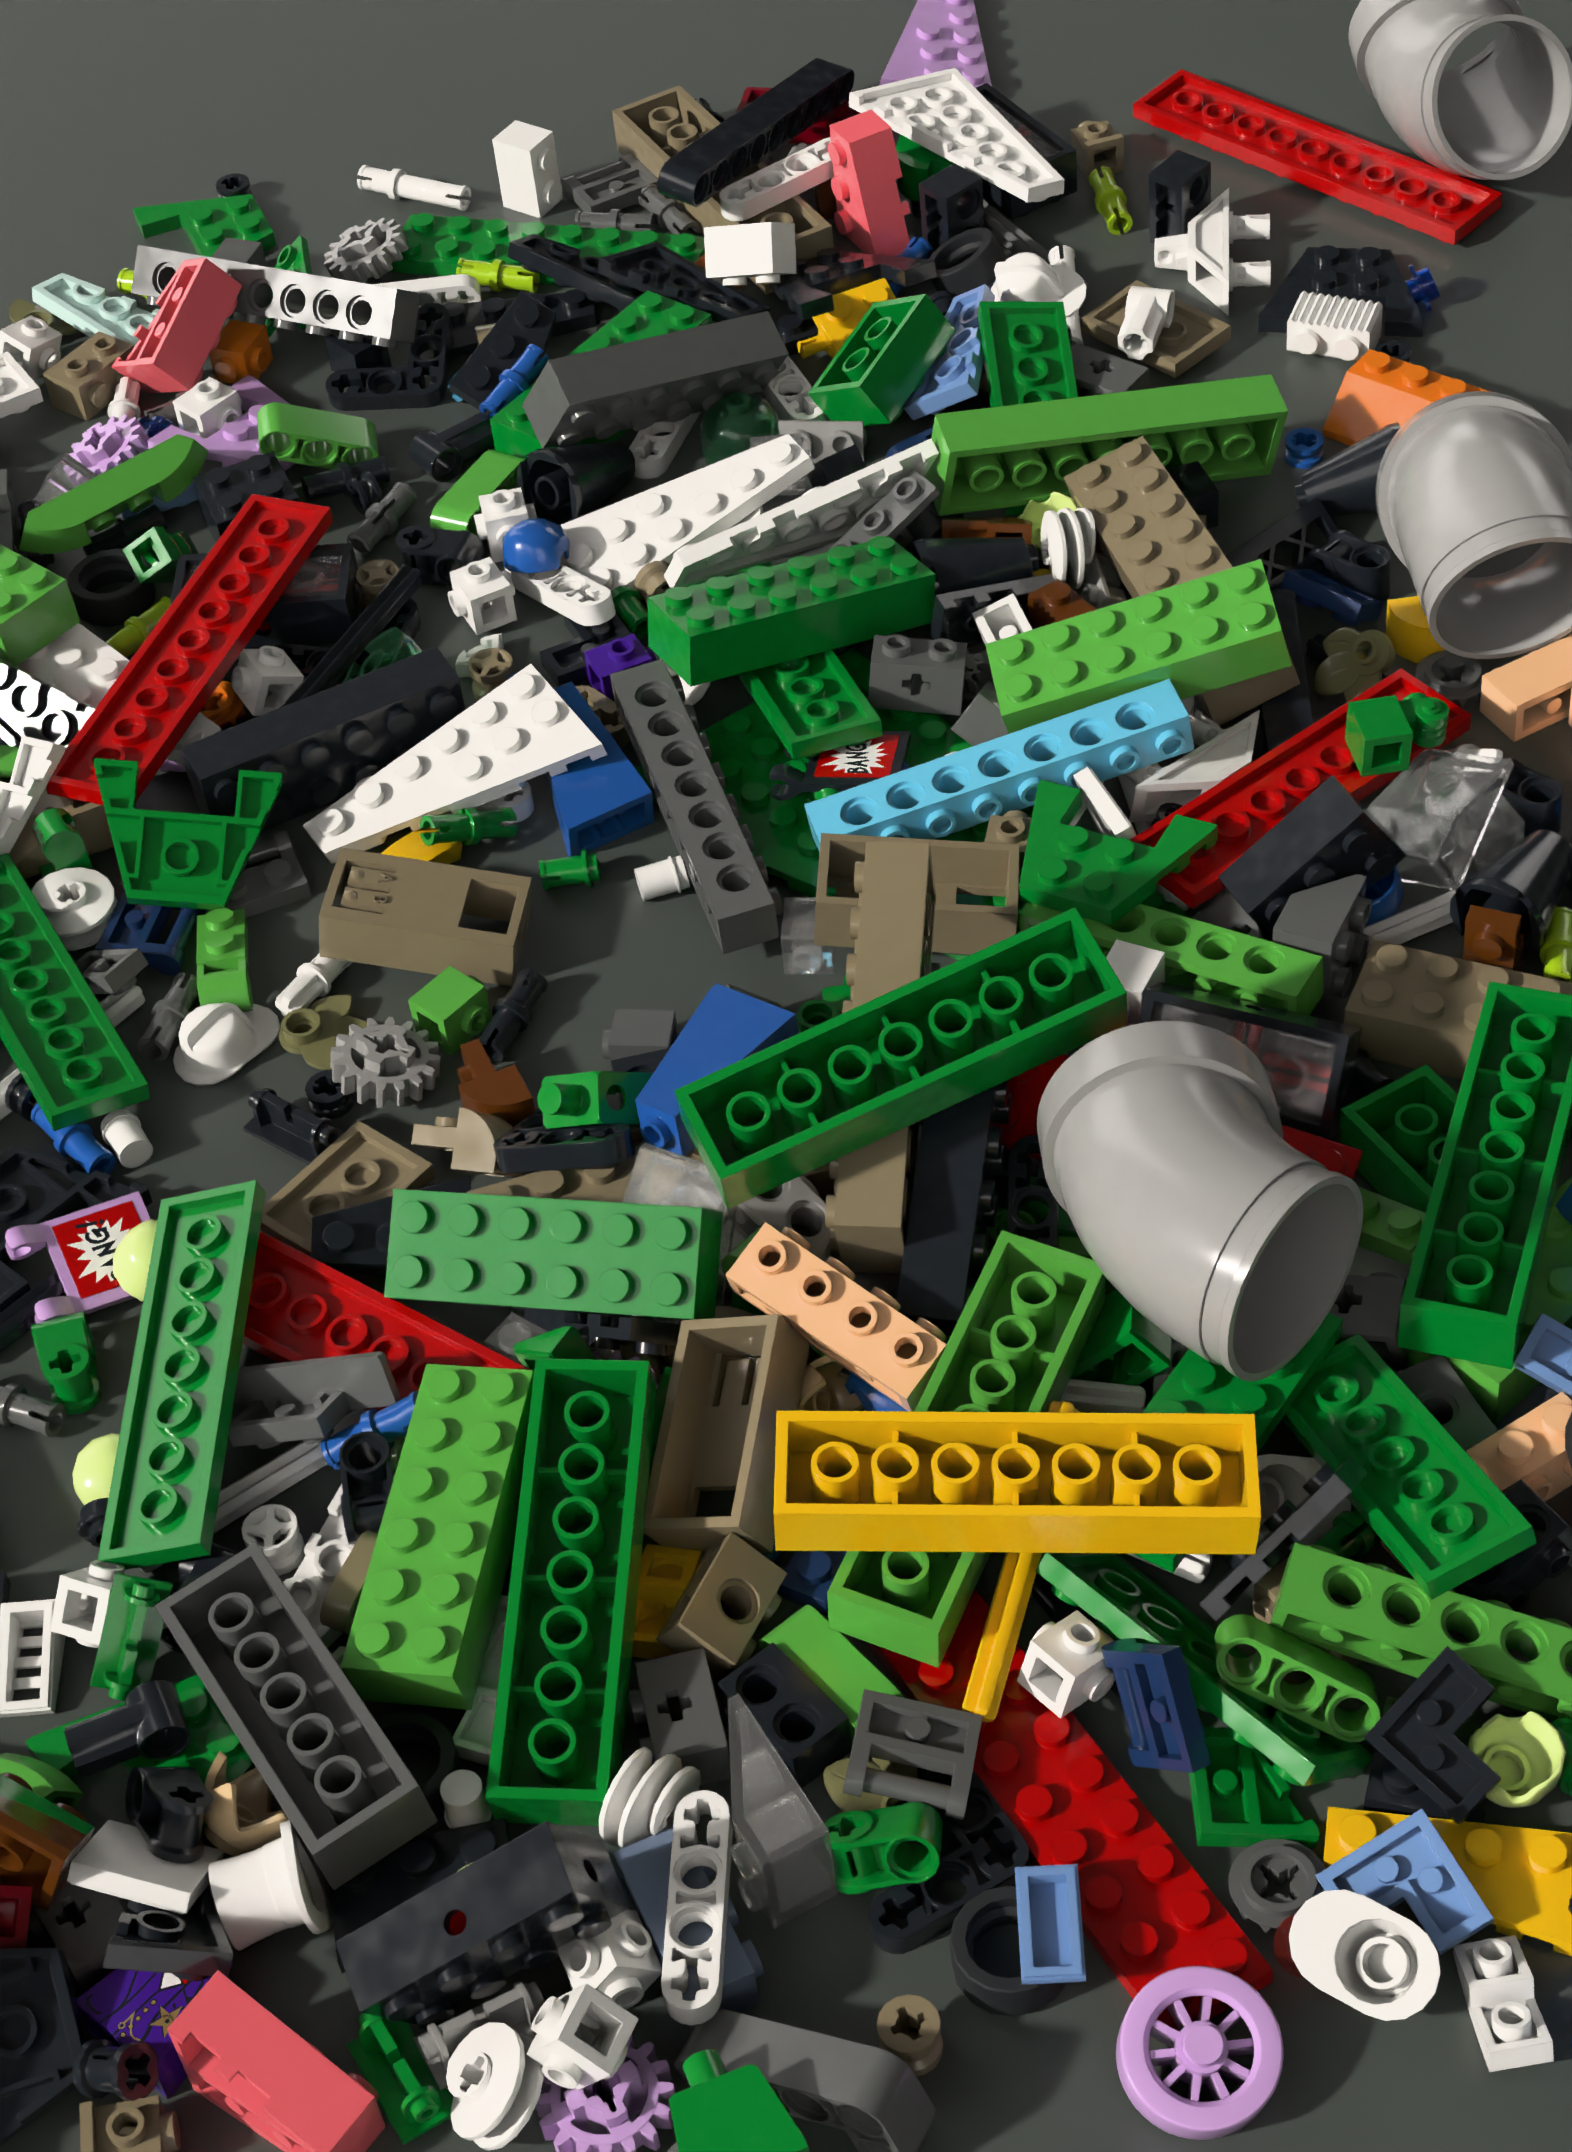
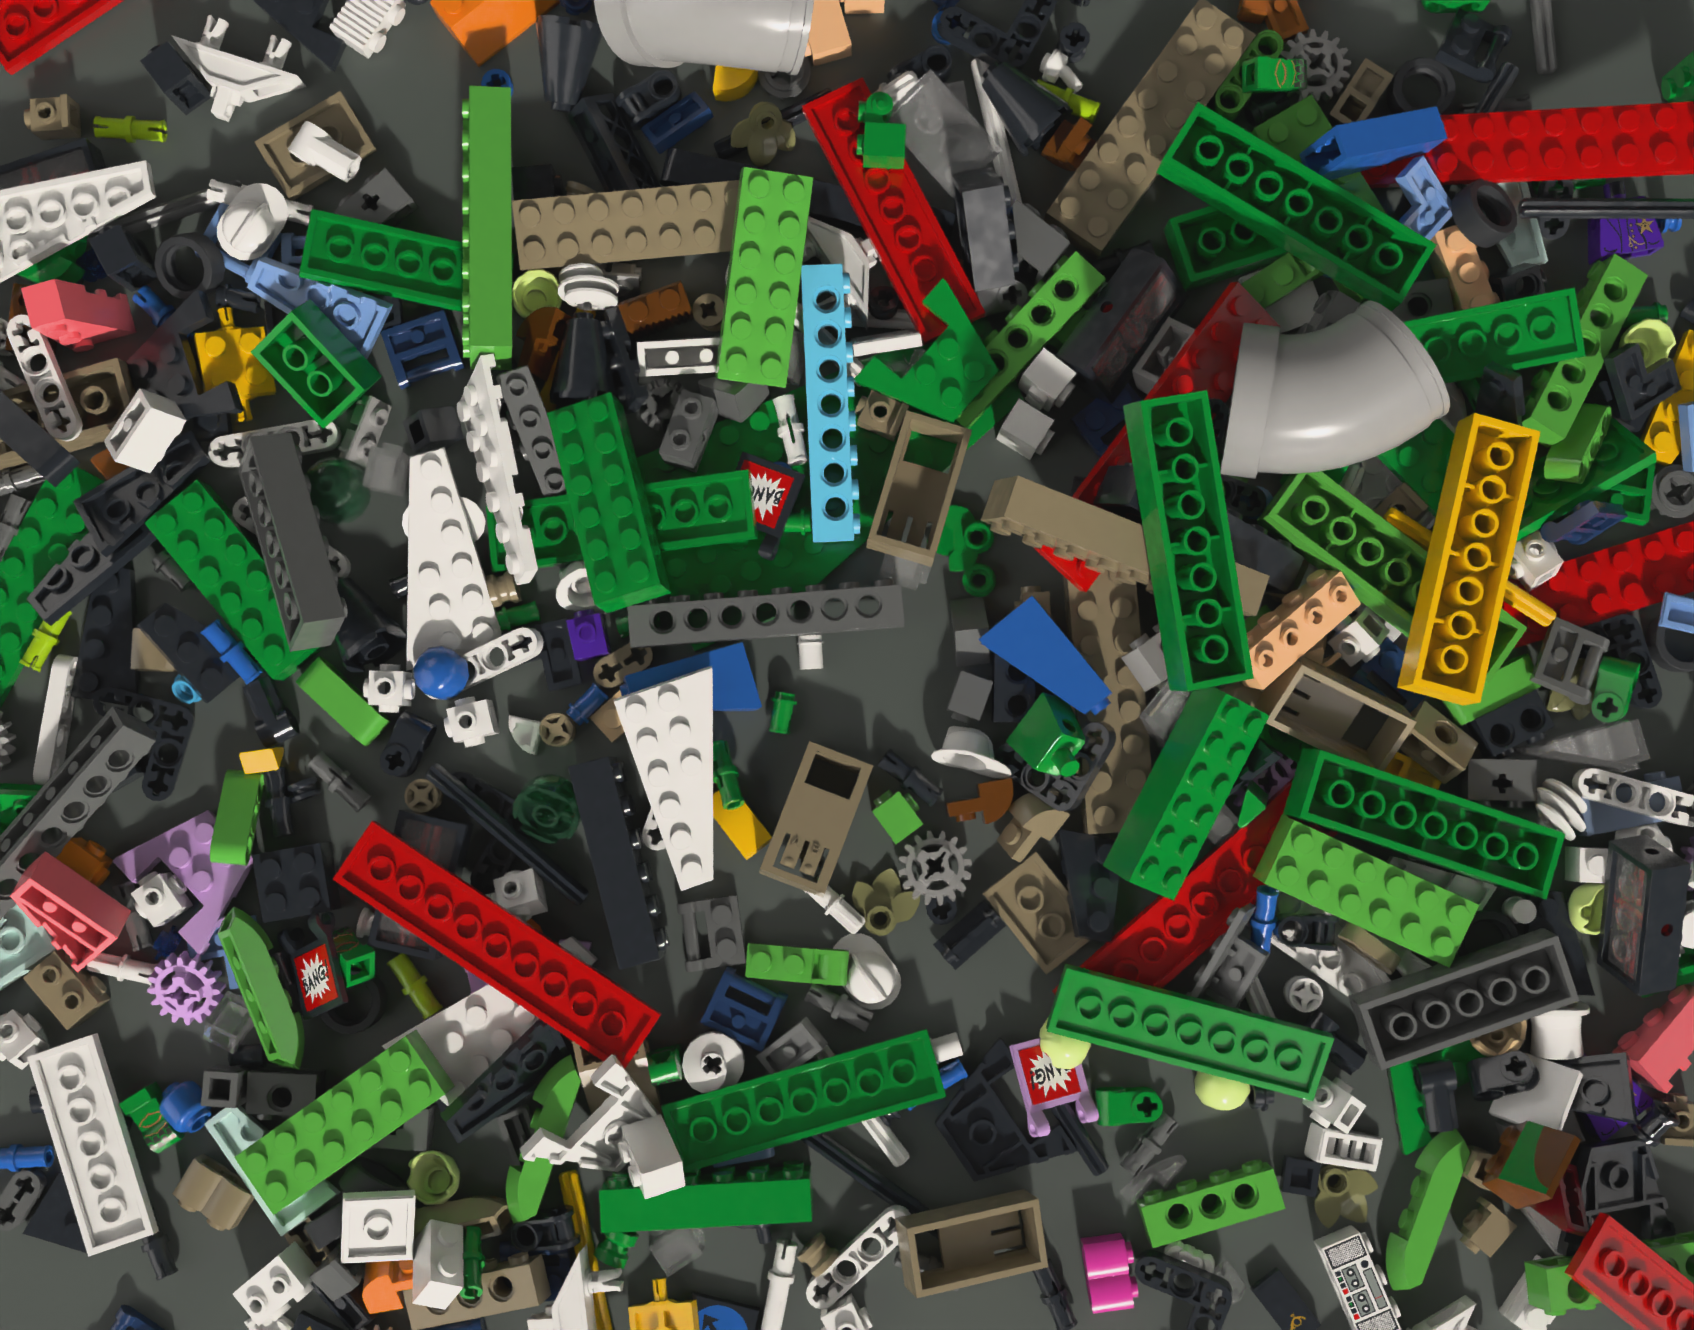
camera: 80 degrees left, 40 degrees up
(129, 1635) = (1370, 1087): green hinge -> none
(179, 855) = (712, 981): green wing -> none
(184, 517) = (315, 967): none -> flag
(394, 446) = (261, 760): none -> yellow slope
(566, 1046) = (971, 751): none -> white piece

